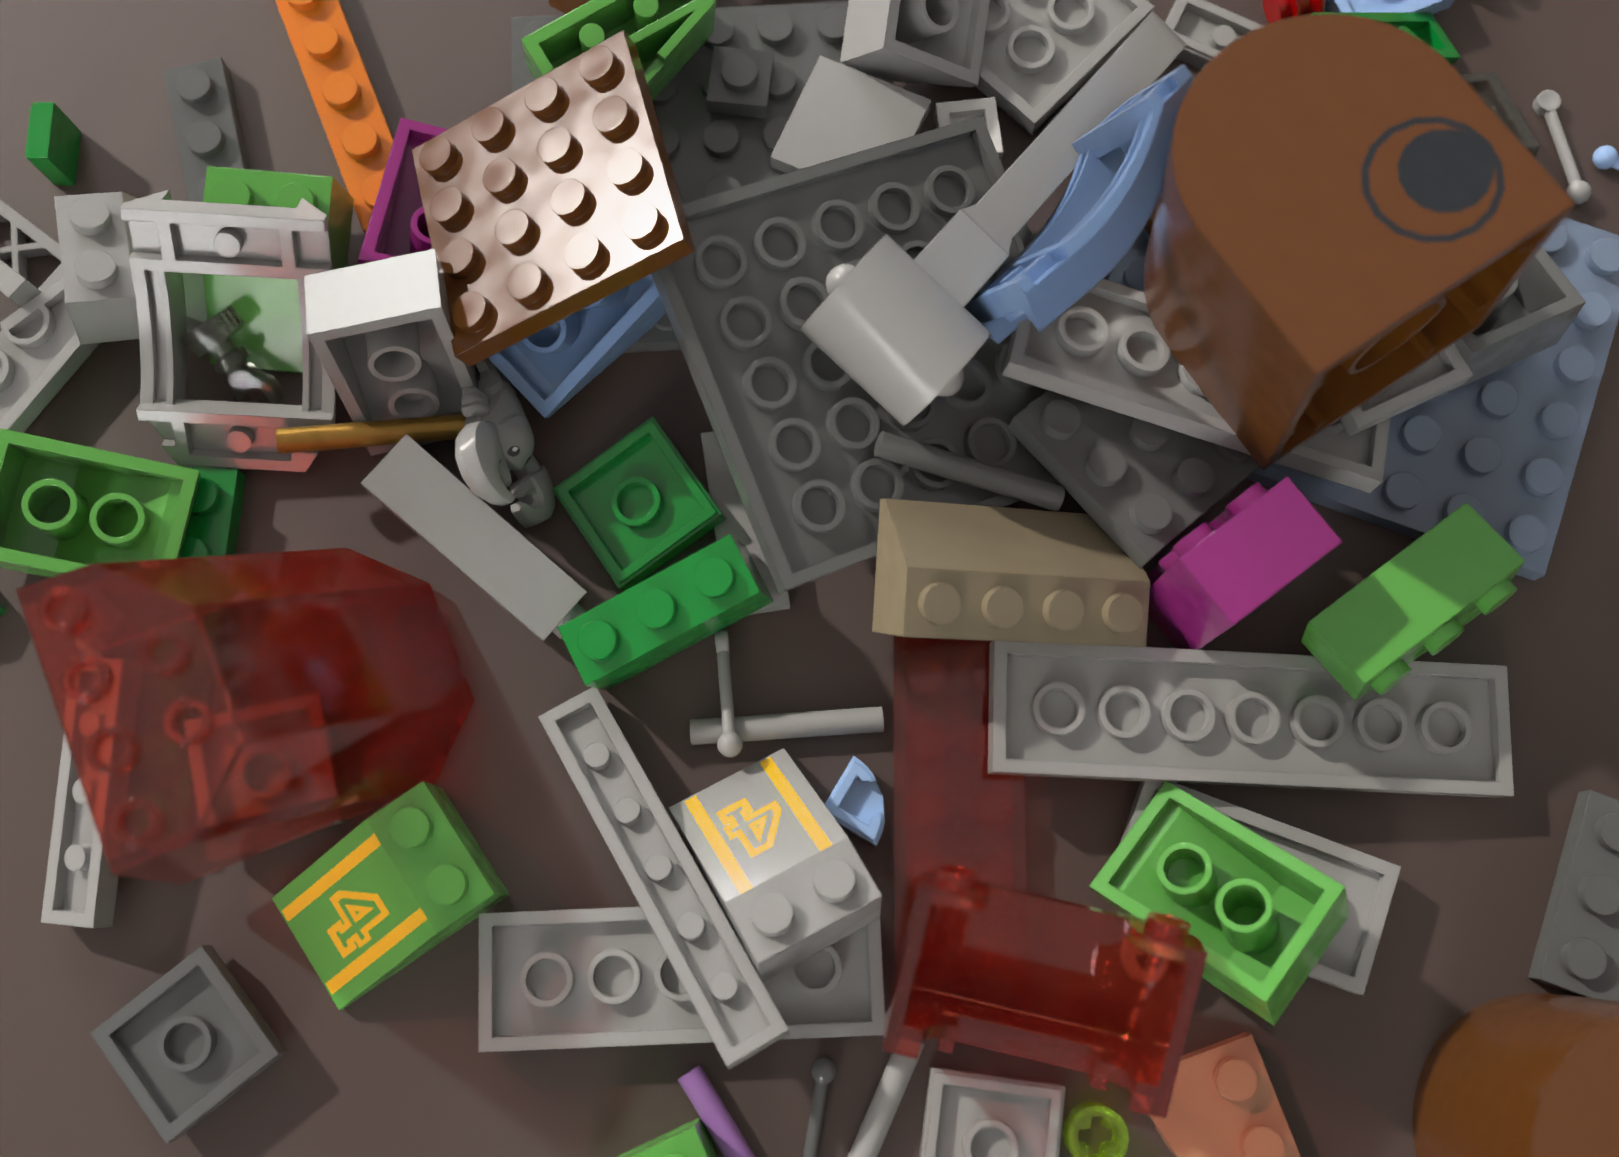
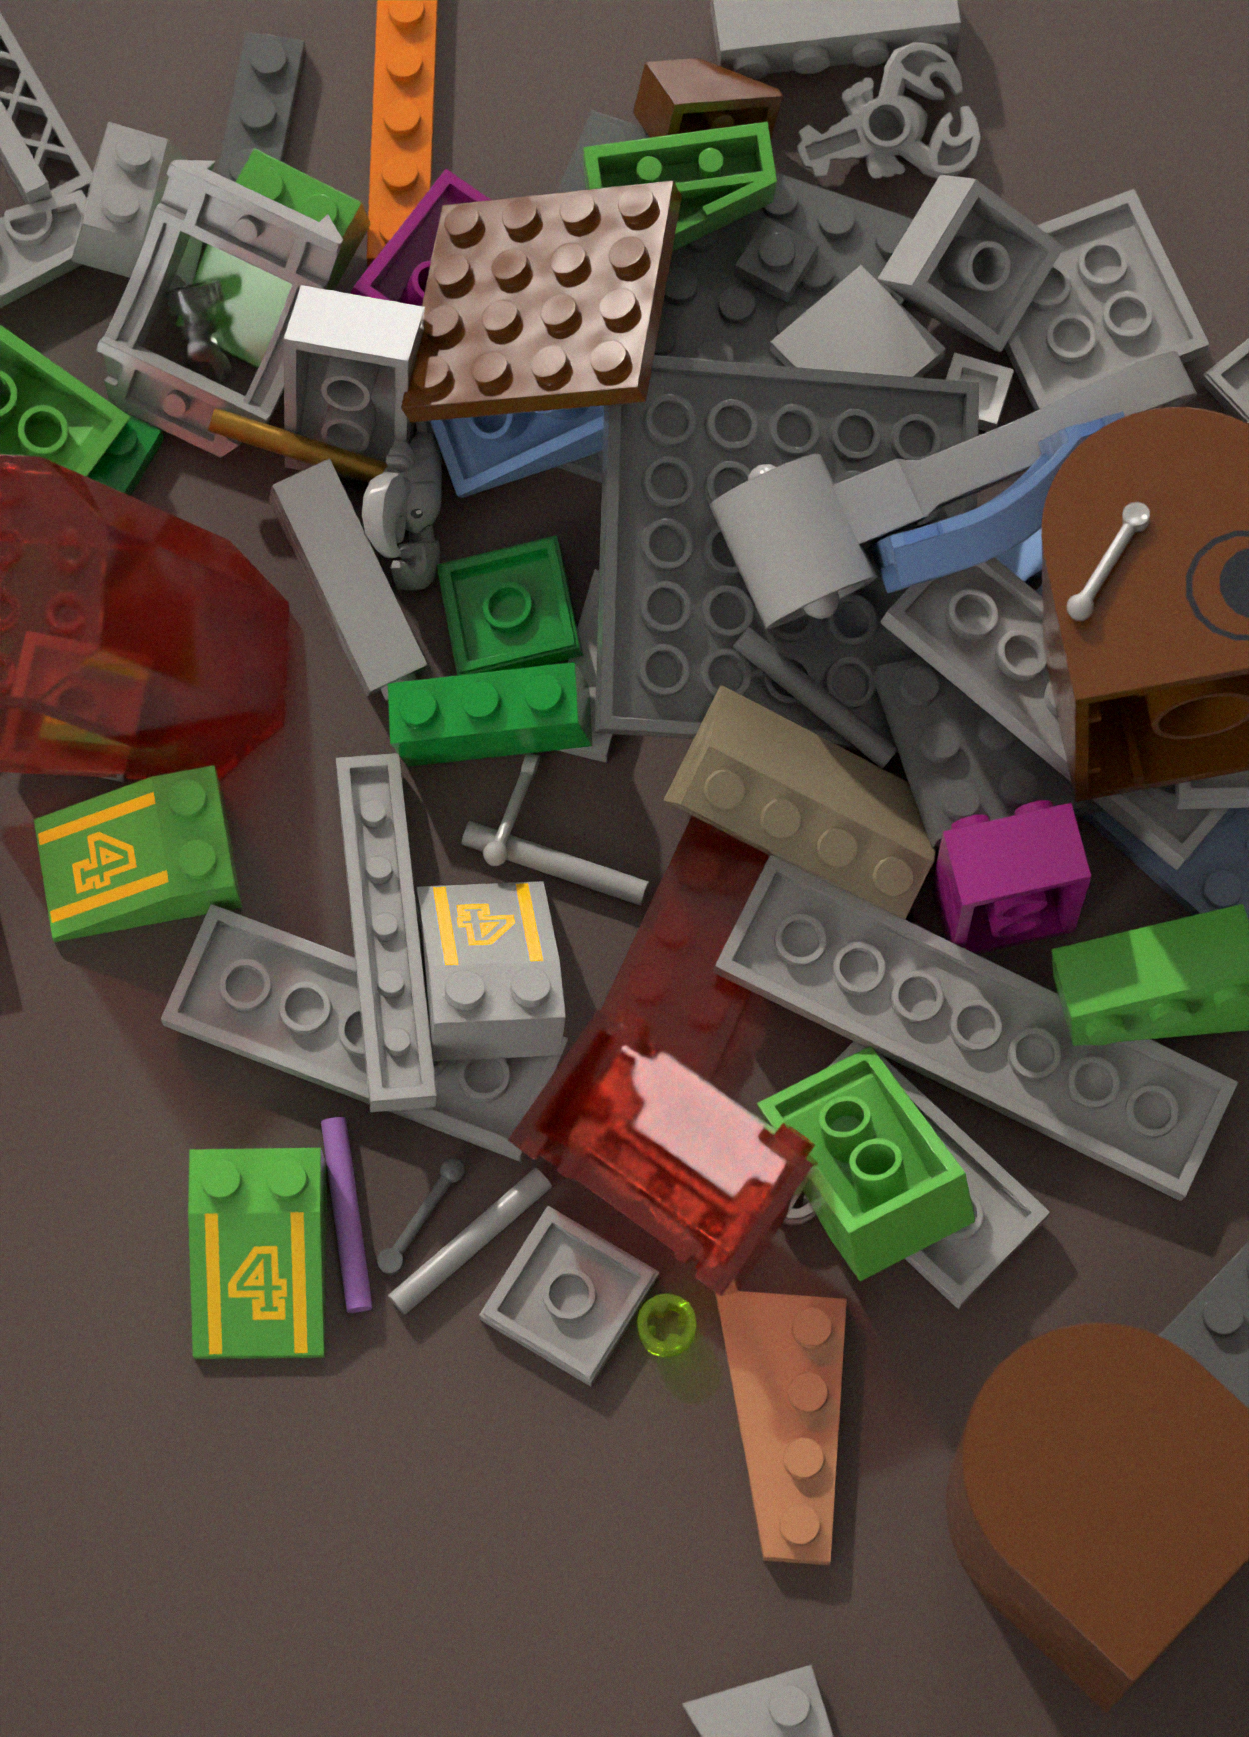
camera: 25 degrees right, 5 degrees down
(53, 143) = (117, 63): green tile -> none
(858, 802) = (588, 957): light blue tile -> none
(1280, 158) = (1135, 519): none -> light grey hinge

